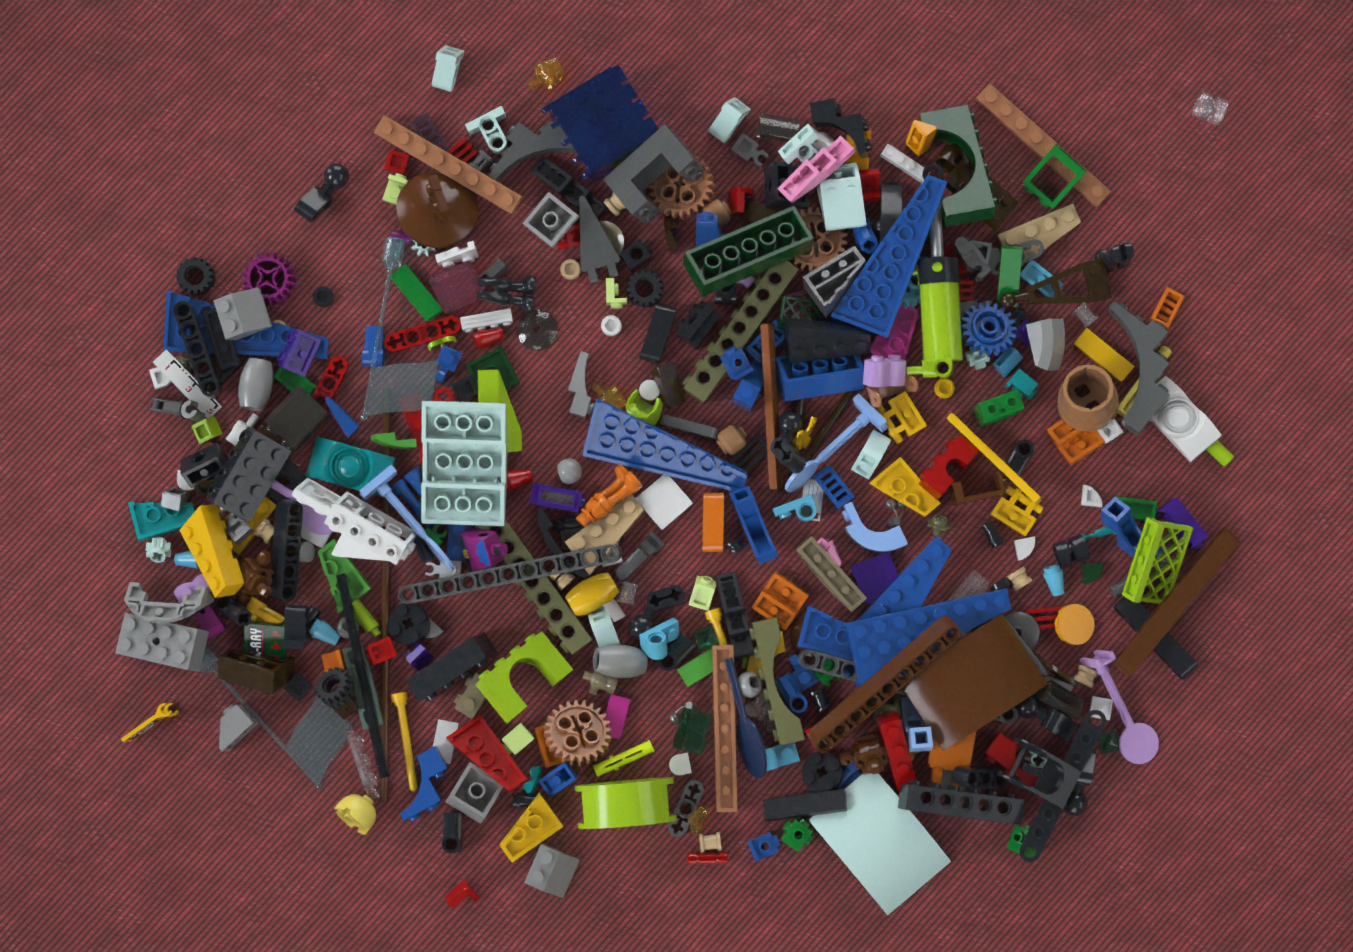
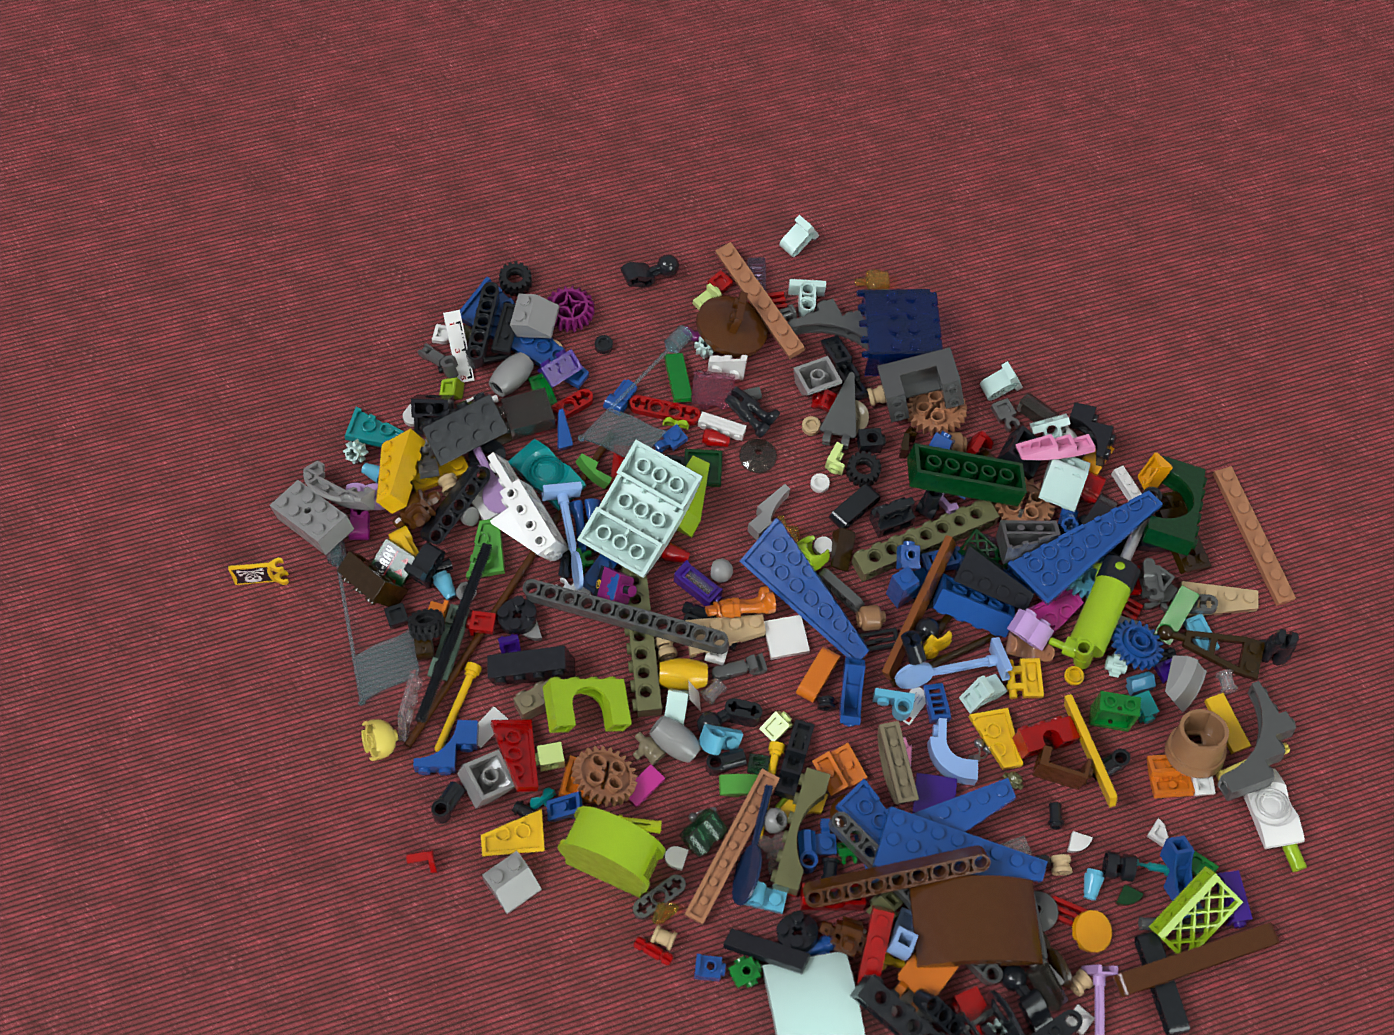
camera: 25 degrees right, 20 degrees down
(174, 498) = (393, 422): slope -> none
(234, 611) = (383, 525): black piece -> none
(235, 725) = (324, 614): light grey slope -> none
(365, 619) = (484, 593): lime cylinder -> none
(546, 525) = (677, 603): black slope -> none
(1013, 516) = (1082, 810): yellow plate -> none
(1066, 159) = (1276, 566): green window -> none
(1161, 318) = (1309, 718): orange slope -> none

